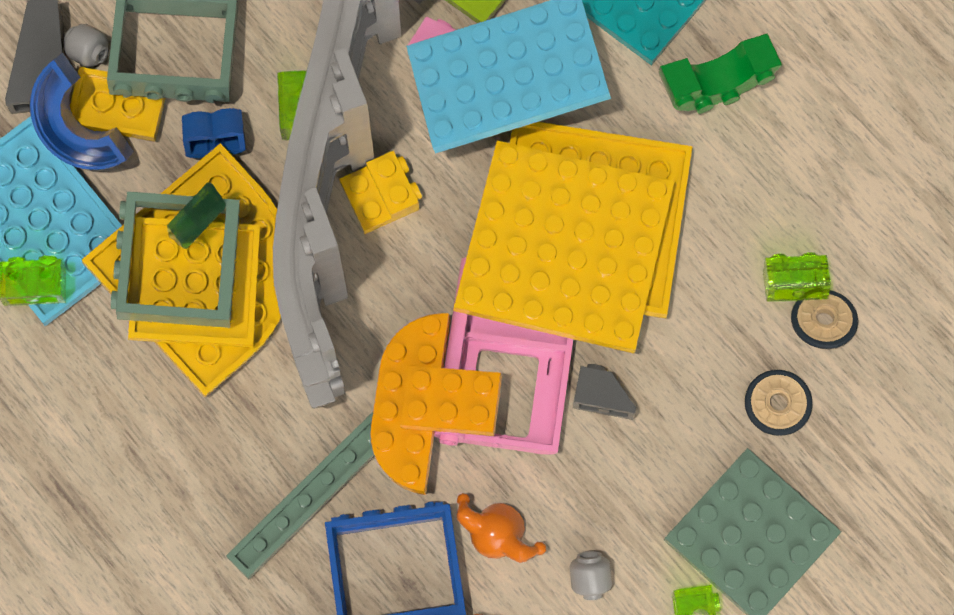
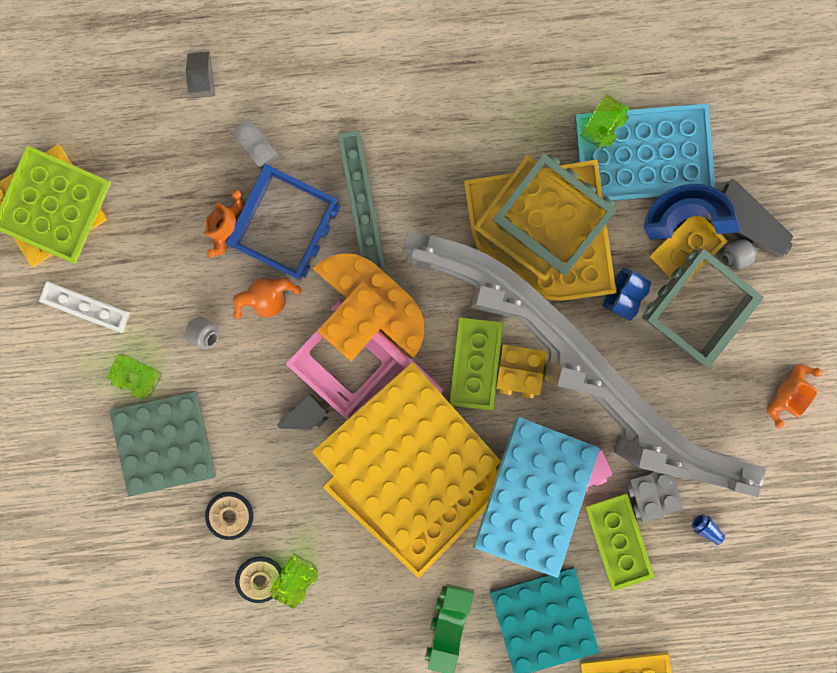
camera: 125 degrees right, 15 degrees up
(196, 216) = (570, 241): clear green slope -> none
(289, 91) = (615, 355): clear neon green brick -> none
(406, 245) = (476, 363): none -> lime plate

